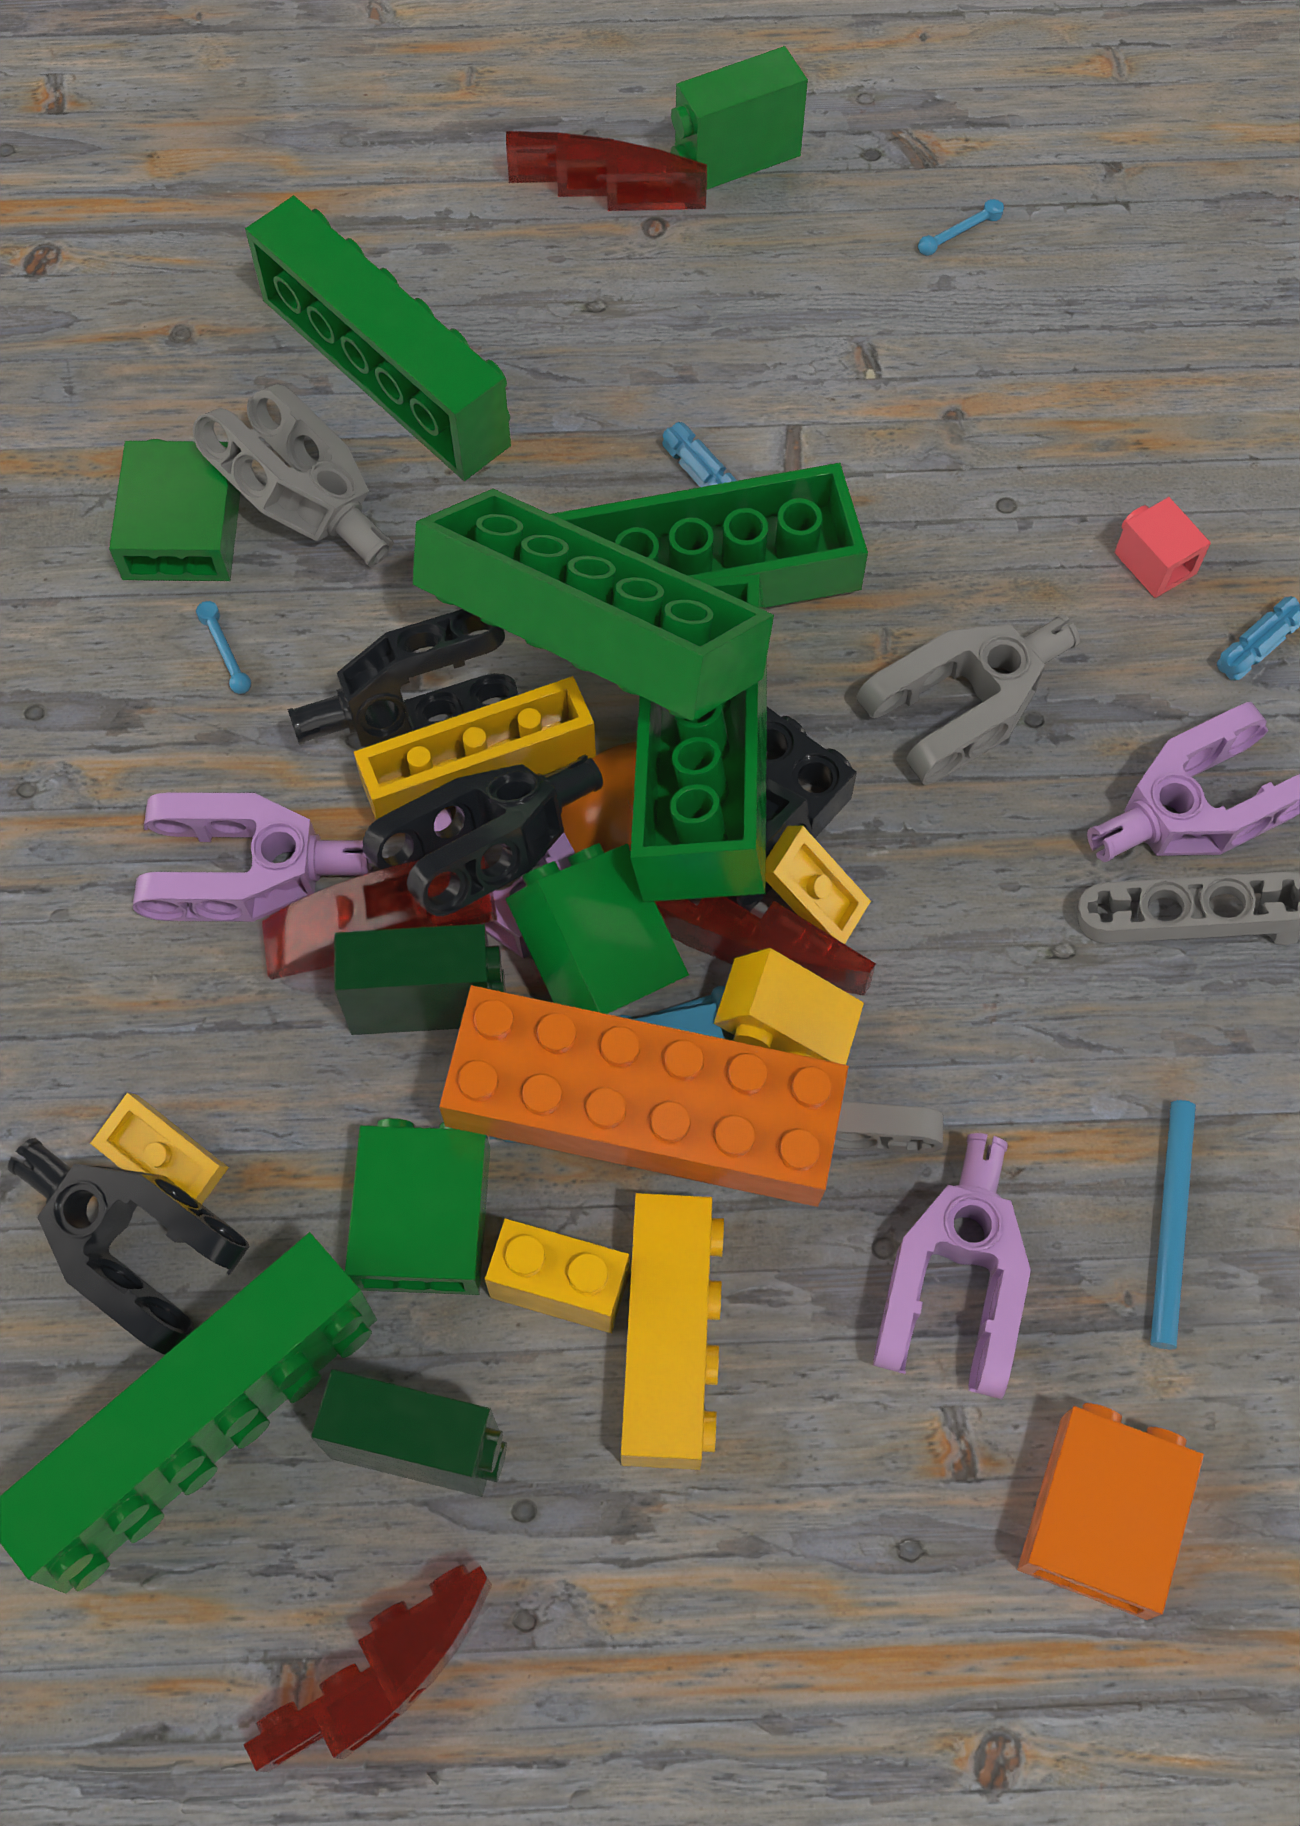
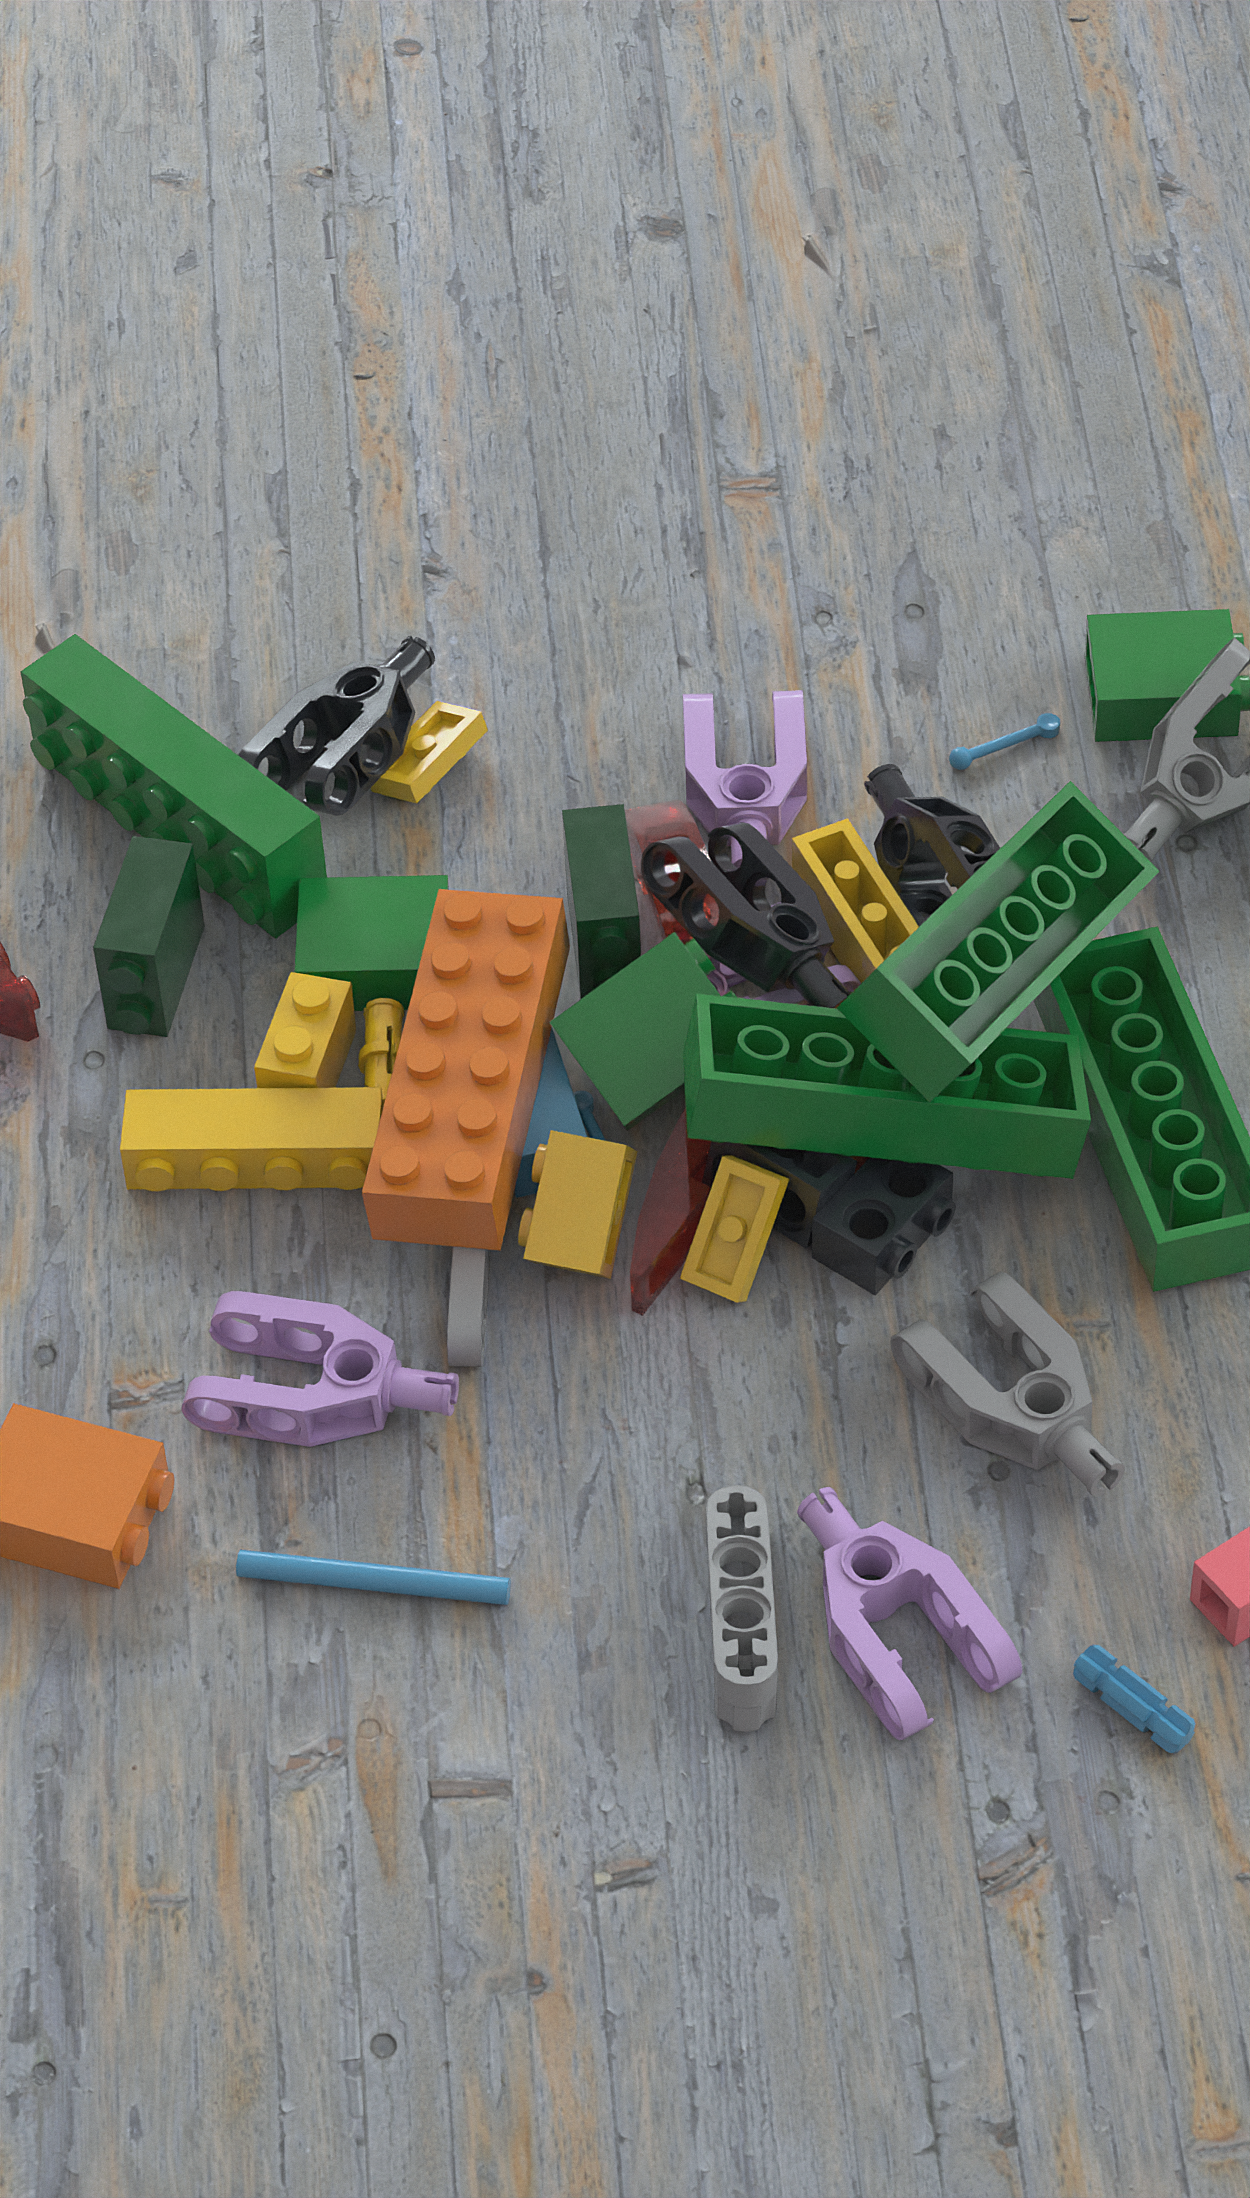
camera: 90 degrees right, 15 degrees down
(568, 1204) = (382, 1039): none -> yellow pin

